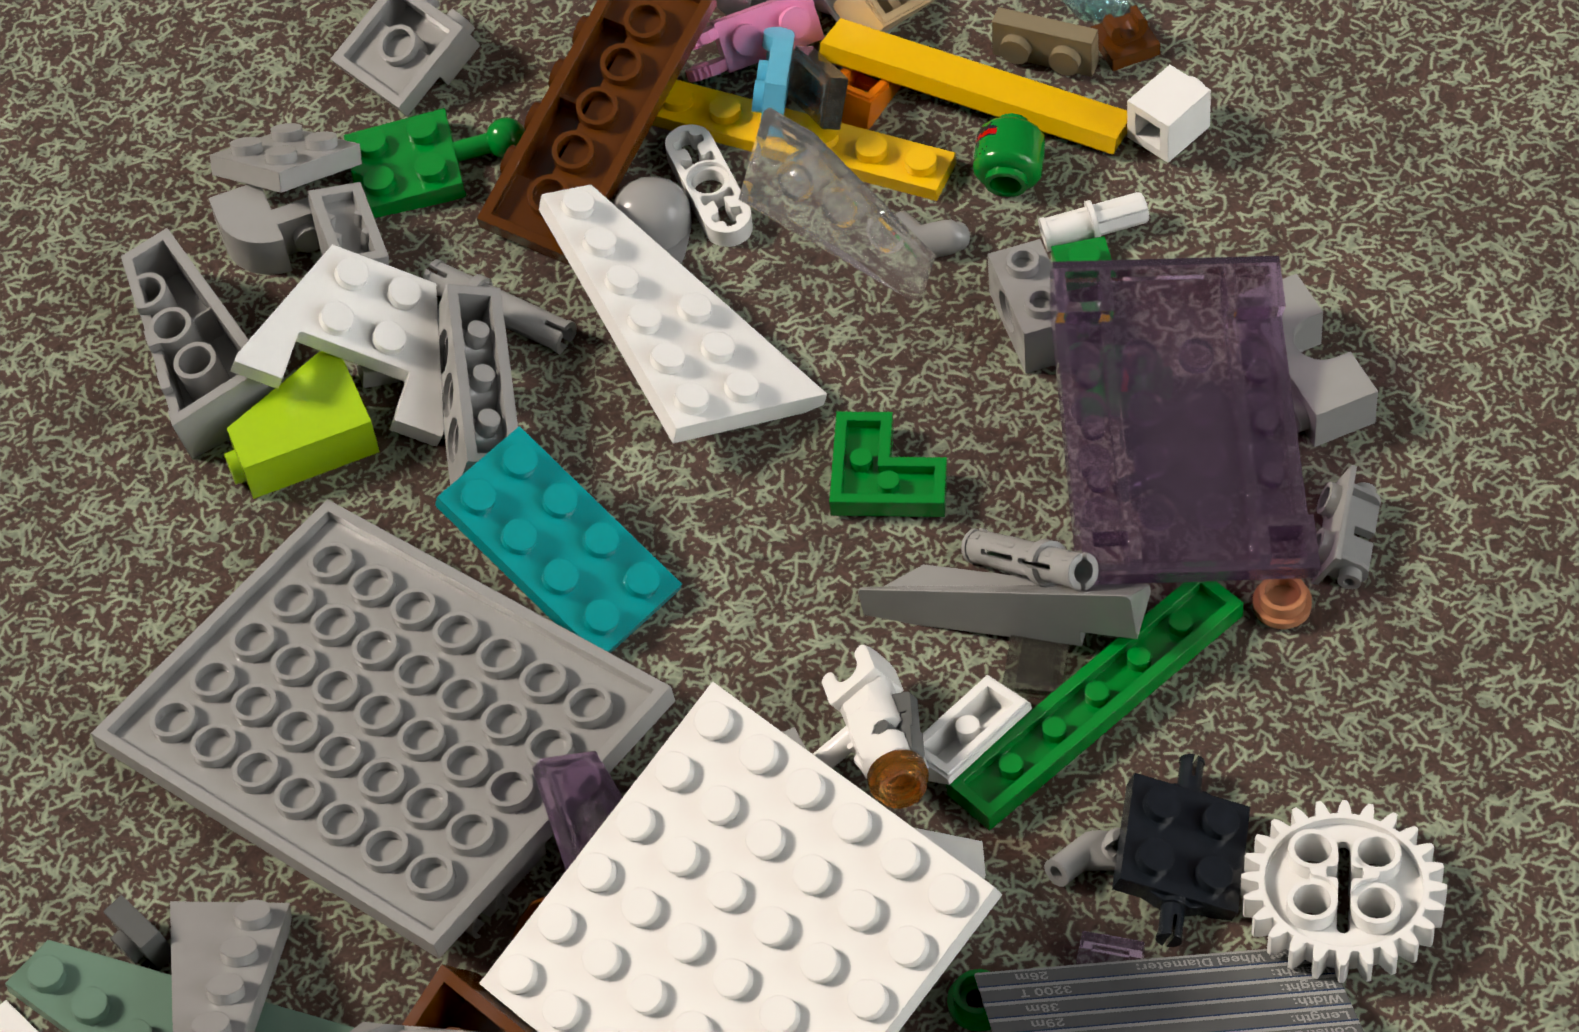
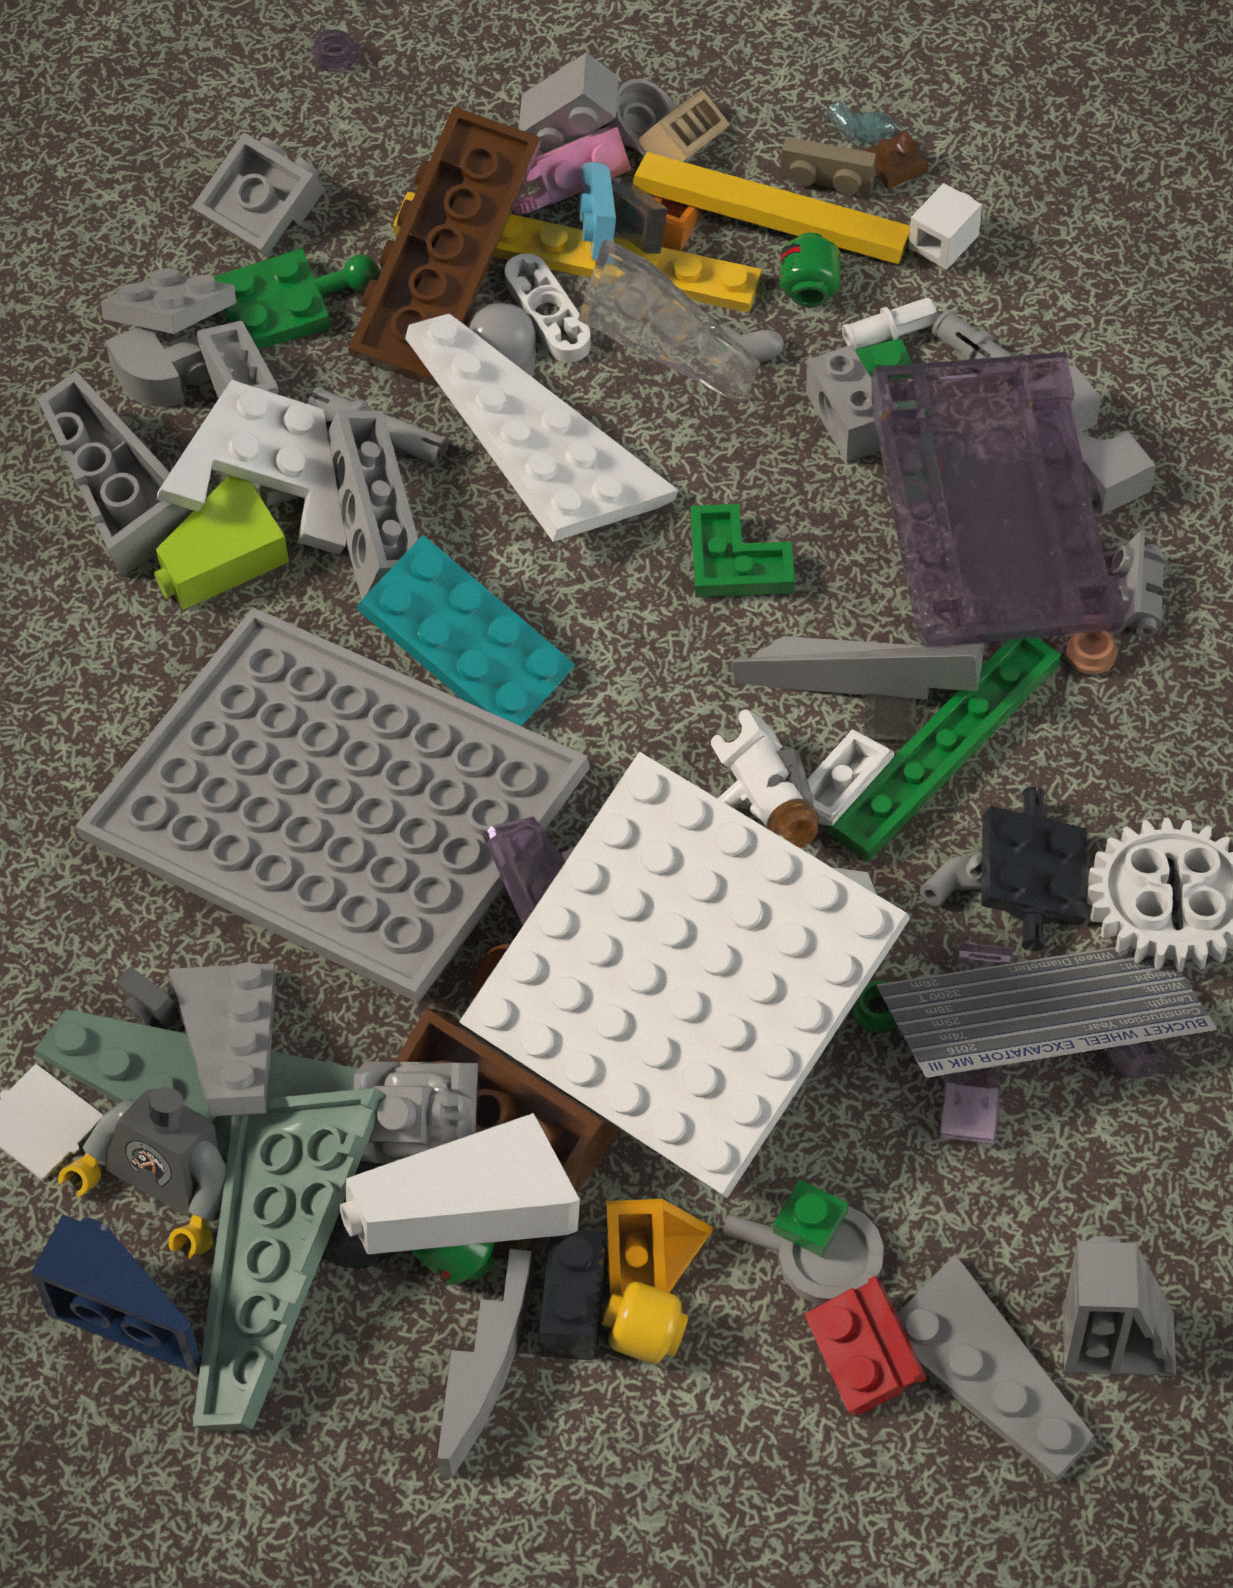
camera: 10 degrees left, 5 degrees up
(1043, 561) = (891, 629): light grey pin -> none
(1168, 231) = (955, 330): none -> light grey pin

